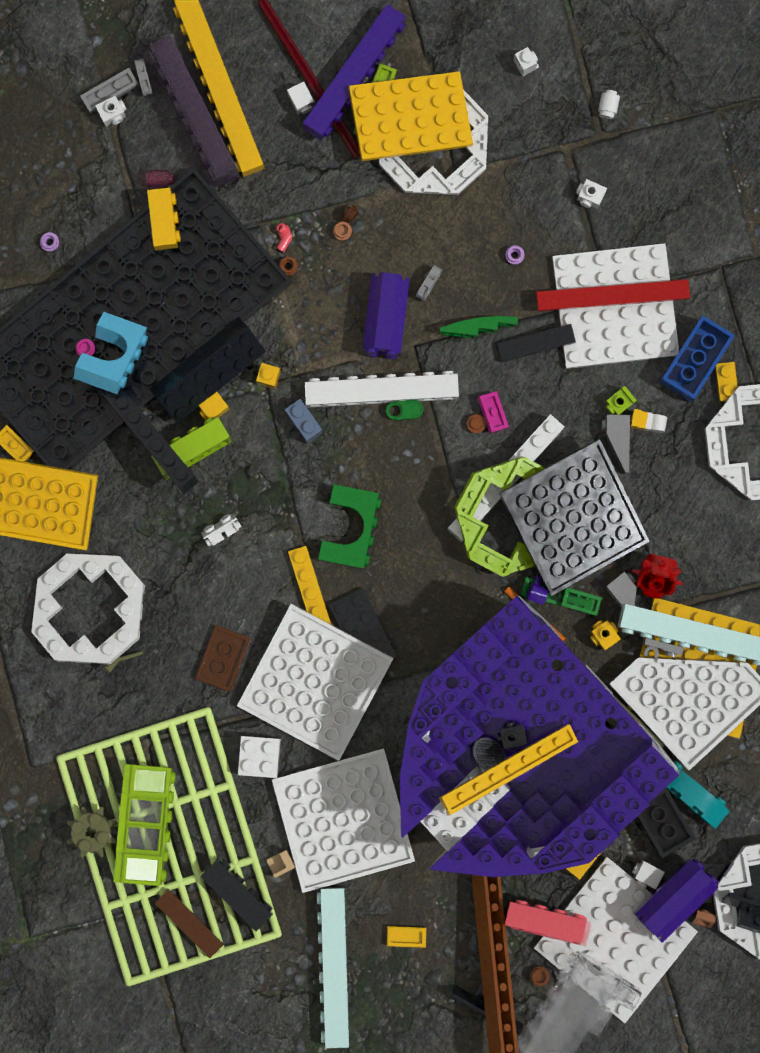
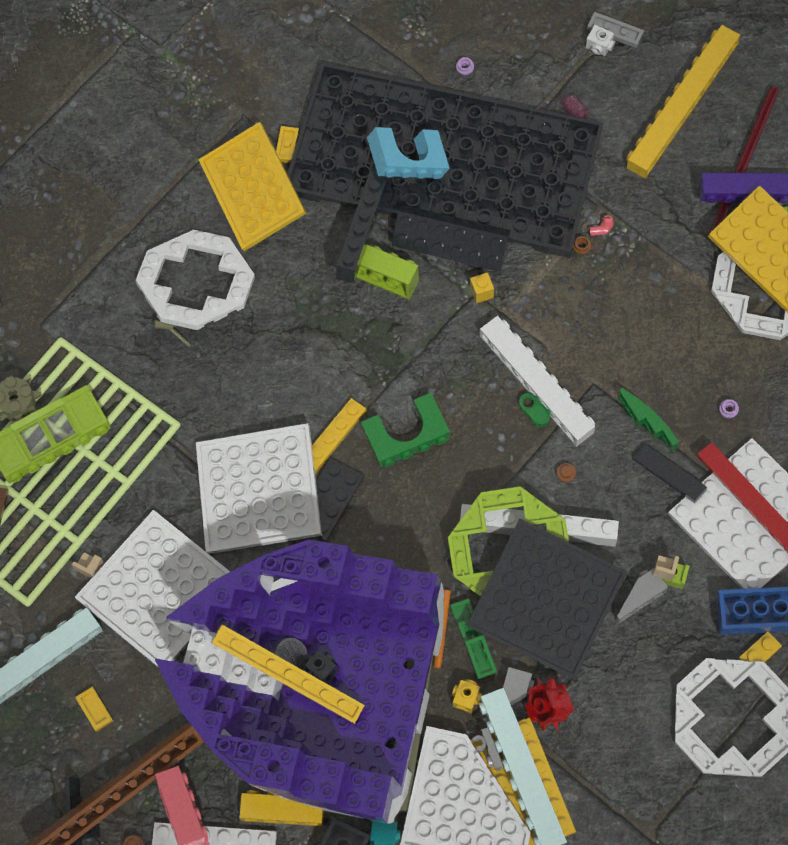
camera: 60 degrees right, 15 degrees down
(85, 346) = (401, 139): dark pink plate -> none
(143, 77) = (645, 45): light grey piece -> none
(163, 218) = (544, 125): yellow brick -> none
(193, 109) = (646, 95): clear purple brick -> none
(213, 407) = (427, 264): yellow brick -> none
(223, 658) = (228, 408): reddish brown tile -> none
(226, 525) = (338, 338): white hinge -> none
(236, 894) = (38, 544): black brick -> none
(259, 757) = (165, 487): white brick -> none
(301, 98) = (722, 162): white brick -> none
(303, 421) = (465, 338): sand blue brick -> none
(342, 231) = (642, 266): nougat plate -> none
(350, 213) = (660, 261): reddish brown plate -> none
(385, 315) = (599, 340): dark purple brick -> none
(429, 283) = (652, 357): light grey piece -> none
(493, 412) = (586, 478): dark pink plate -> none
(536, 592) = (461, 613): dark purple piece -> none
(615, 405) = (666, 567): none -> tan panel
(648, 421) = (674, 608): leg -> none

